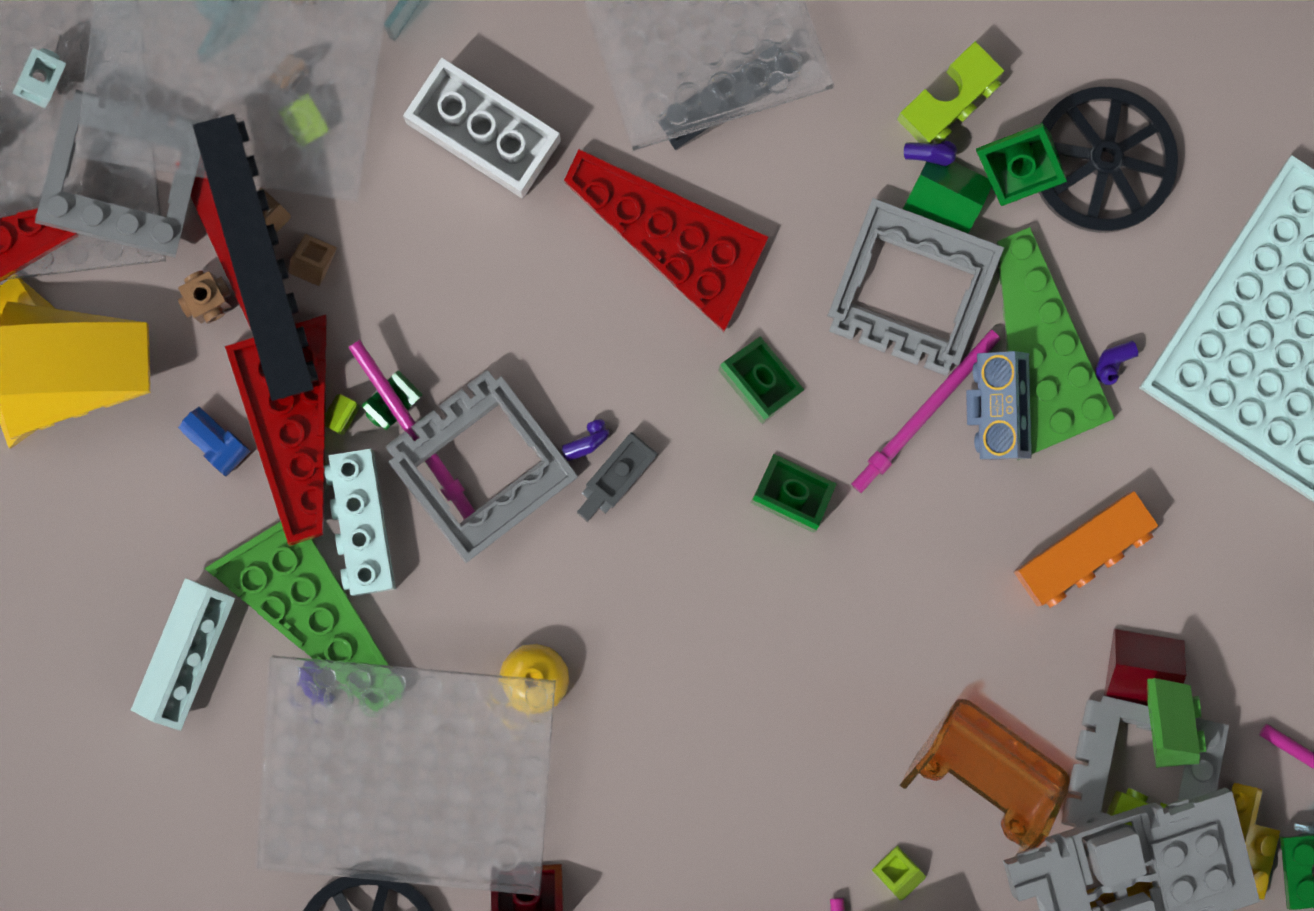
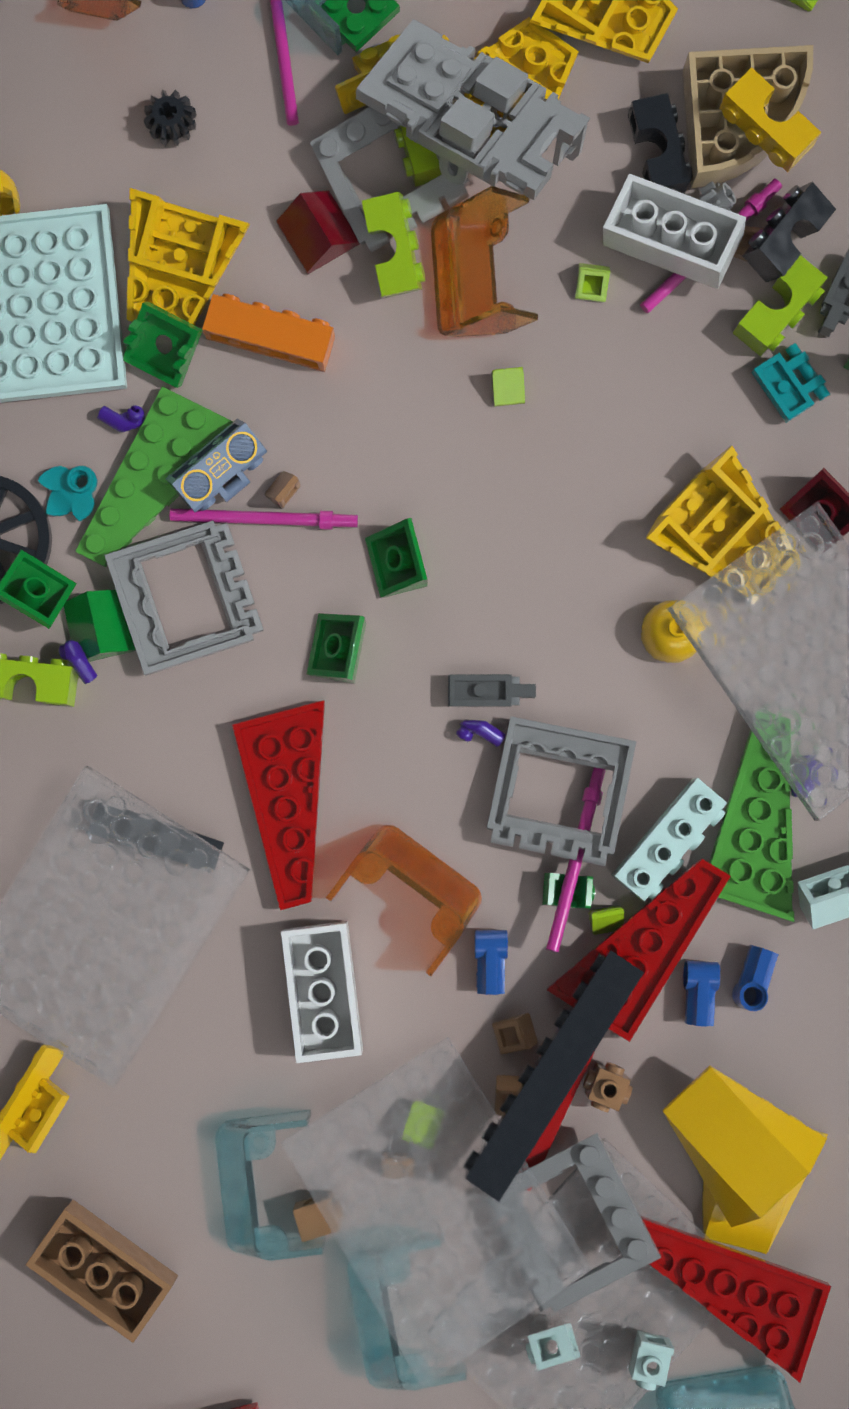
camera: 125 degrees left, 0 degrees up
(188, 499) = (756, 974): none -> blue piece
(394, 293) = (491, 952): none -> blue piece
(505, 292) = (426, 874): none -> clear orange windscreen
(600, 796) = (714, 517): none -> yellow wedge
(865, 718) = (508, 386): none -> lime slope
(938, 447) = (283, 489): none -> medium nougat slope
(1087, 261) = (66, 494): none -> teal plate
(1098, 736) = (390, 215): none -> lime arch
(1157, 426) = (142, 348): none -> green piece
(1174, 723) = (341, 172): bright green slope -> none
(1217, 520) = (176, 255): none -> yellow wedge

